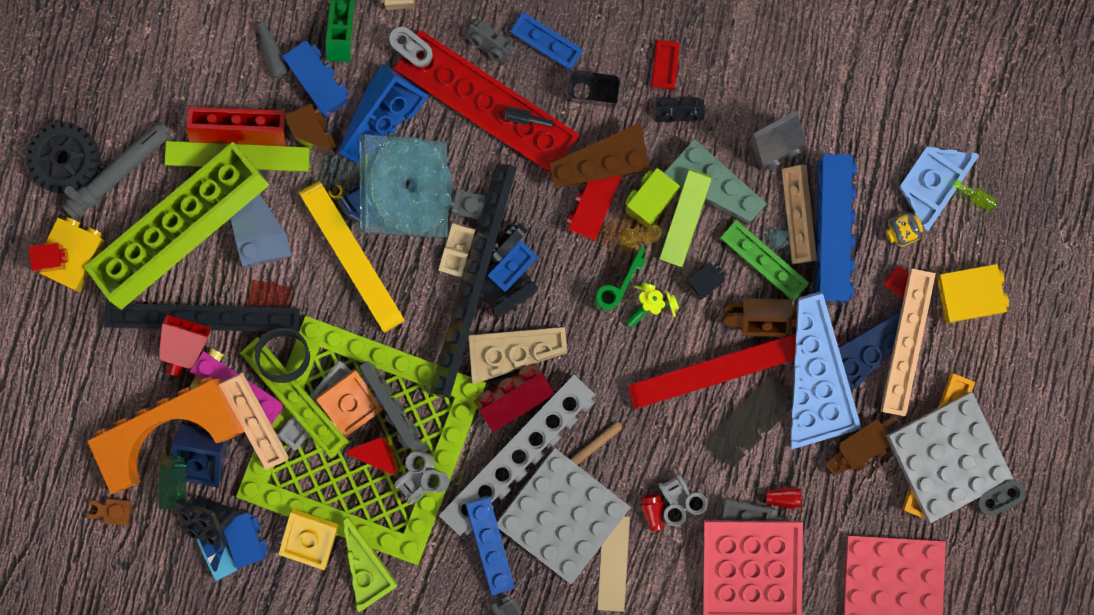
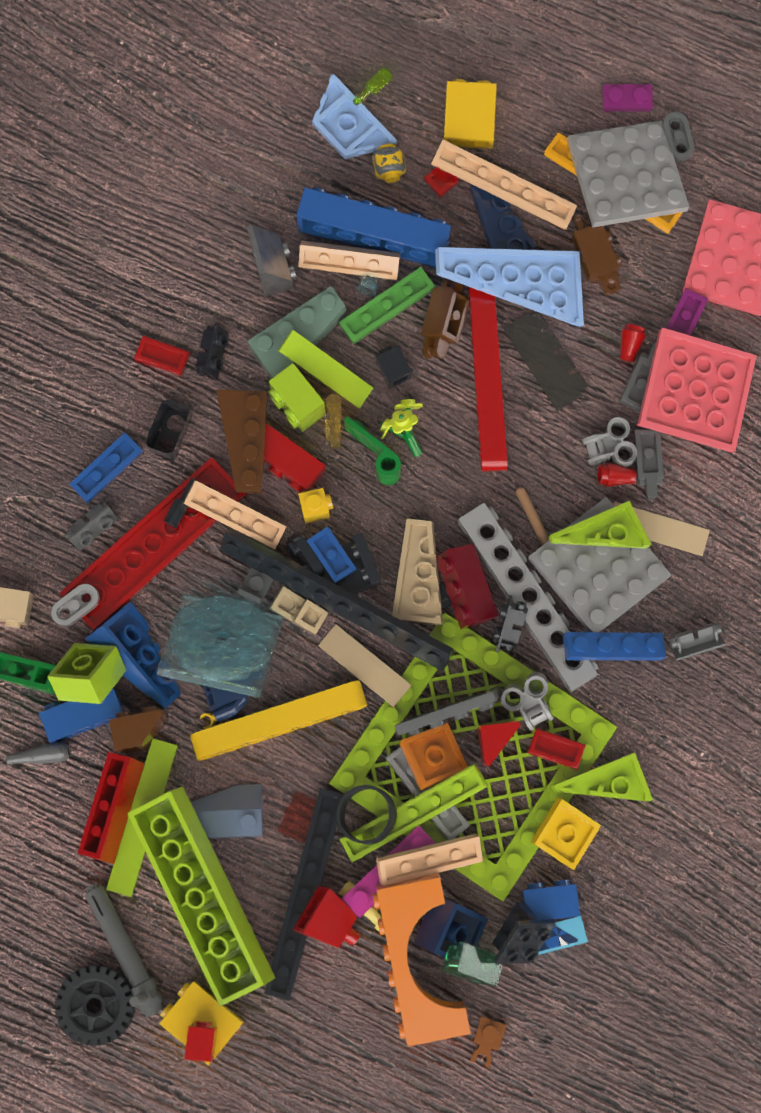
camera: 75 degrees left, 5 degrees down
(349, 73) = (87, 673): none -> lime brick
(383, 514) = (556, 749): none -> red tile
(420, 321) = (364, 665): none -> tan sticker
(495, 445) = (507, 634): none -> black hinge
(529, 168) = (234, 514): none -> light nougat plate
(556, 240) = (315, 505): none -> yellow brick
(598, 518) = (610, 528): none -> lime wing
(674, 539) = (649, 460): none -> dark grey hinge
(825, 544) = (687, 312): none -> magenta plate
(1028, 440) = (627, 97): none -> magenta plate

